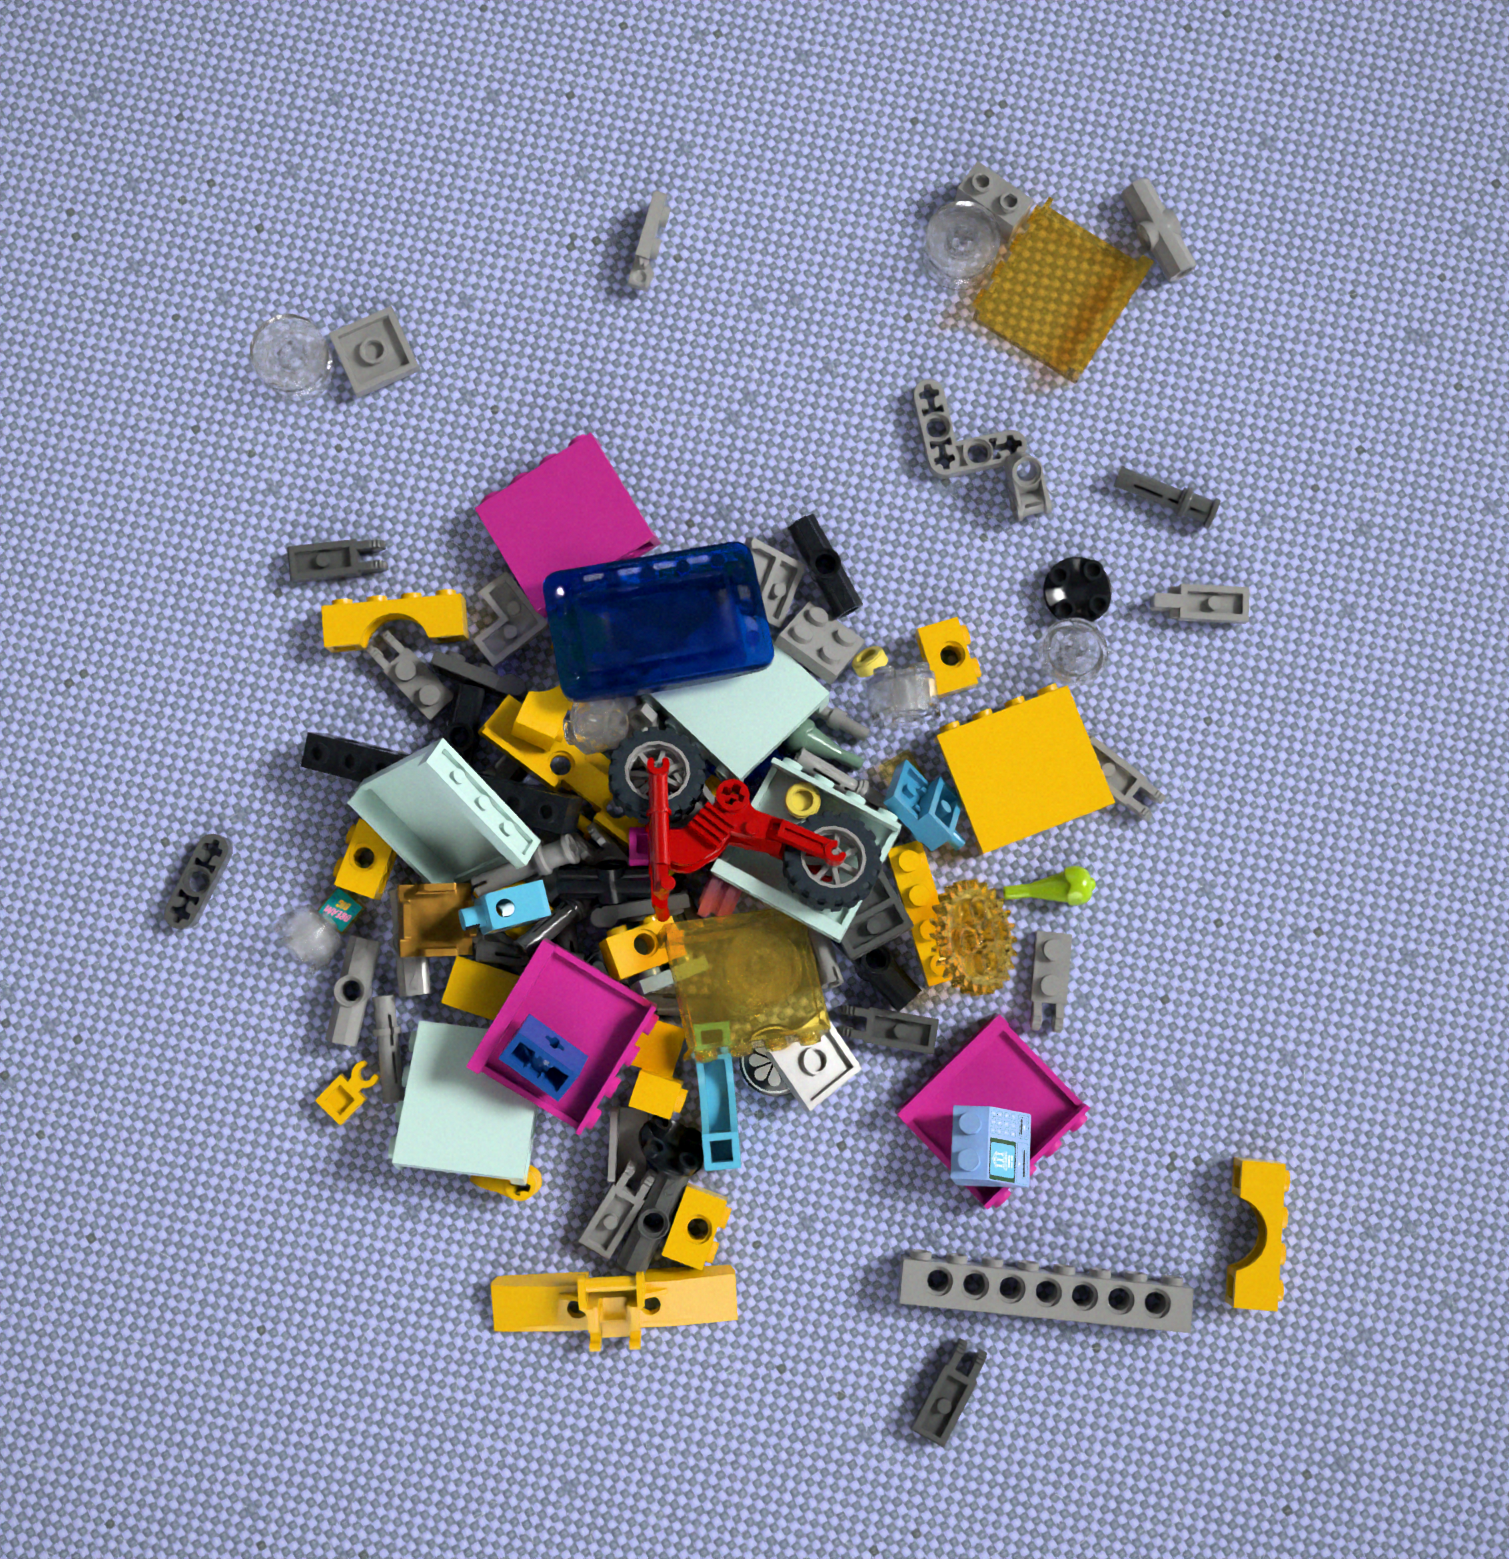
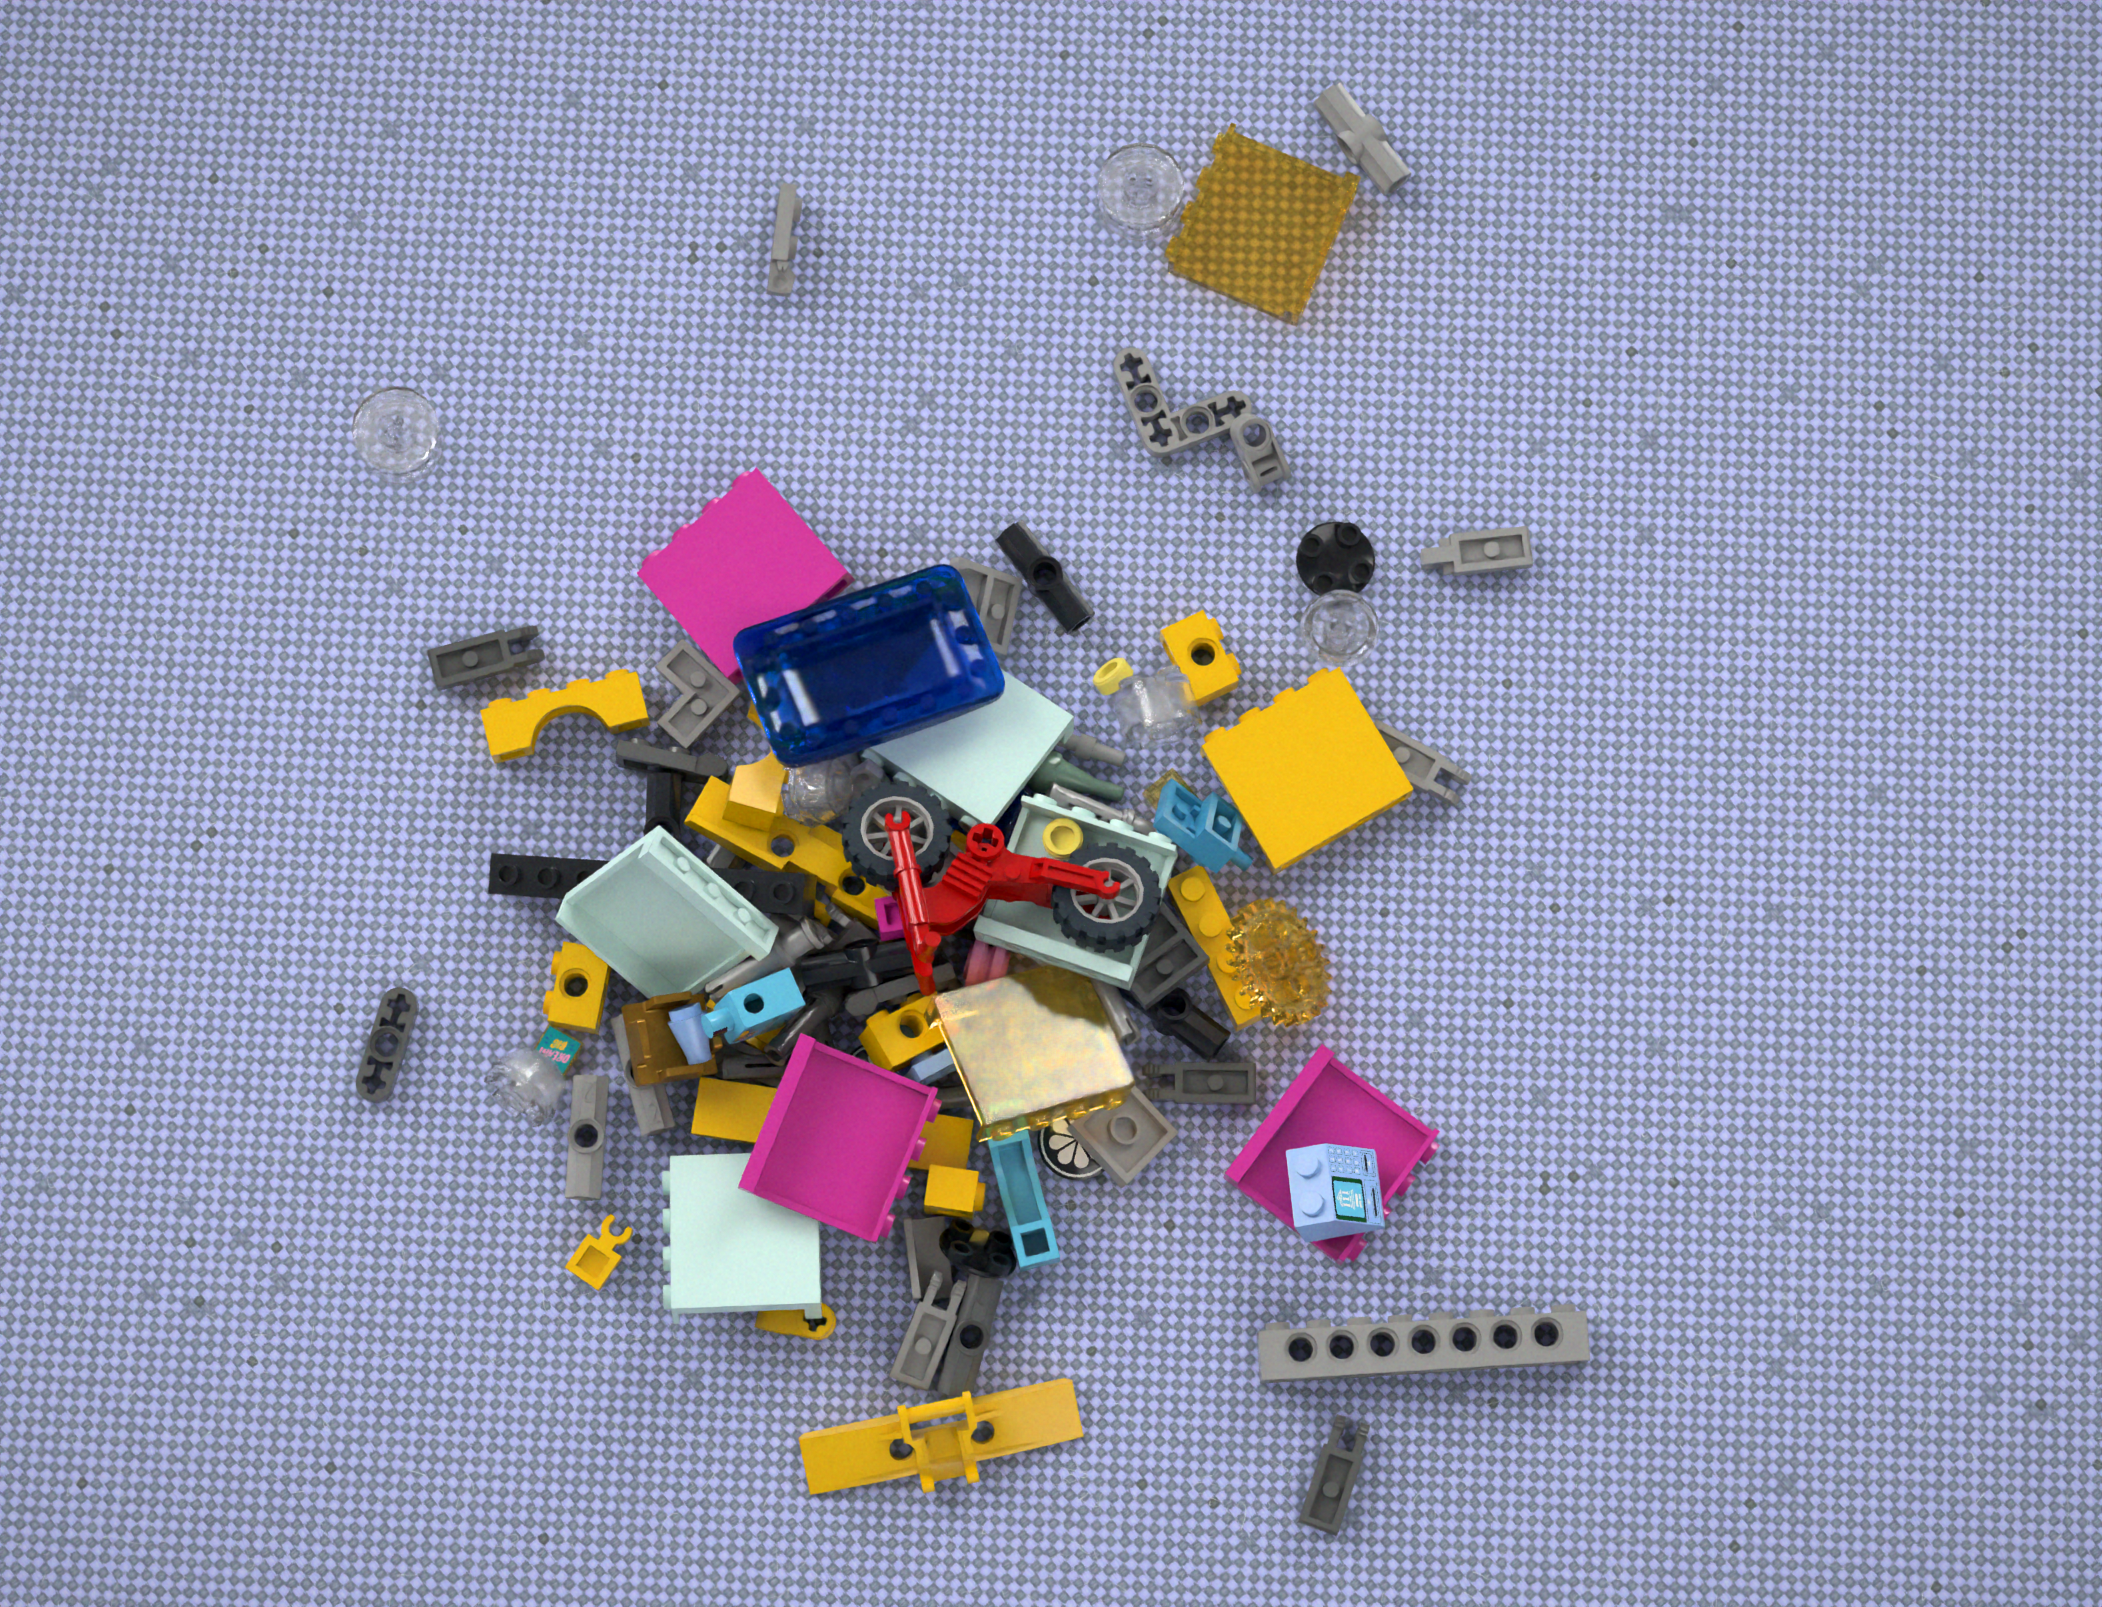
camera: 15 degrees left, 5 degrees down
(374, 351) = (488, 413): light grey plate -> none
(388, 1048) = (637, 1195): light grey pin -> none
(413, 678) = (595, 777): light grey hinge -> none
(447, 915) = (689, 1032): none -> light blue cone
(543, 1057) = (822, 1162): blue brick -> none
(685, 1246) = (1015, 1312): yellow brick -> none
(819, 642) = (1053, 663): light grey plate -> none
(998, 196) = (1172, 131): light grey brick -> none
(1050, 977) = (1374, 996): light grey hinge -> none
(1069, 886) = (1380, 891): lime piece -> none
(1183, 501) = (1438, 441): dark grey pin -> none
(1255, 1278) = (1645, 1190): yellow arch -> none

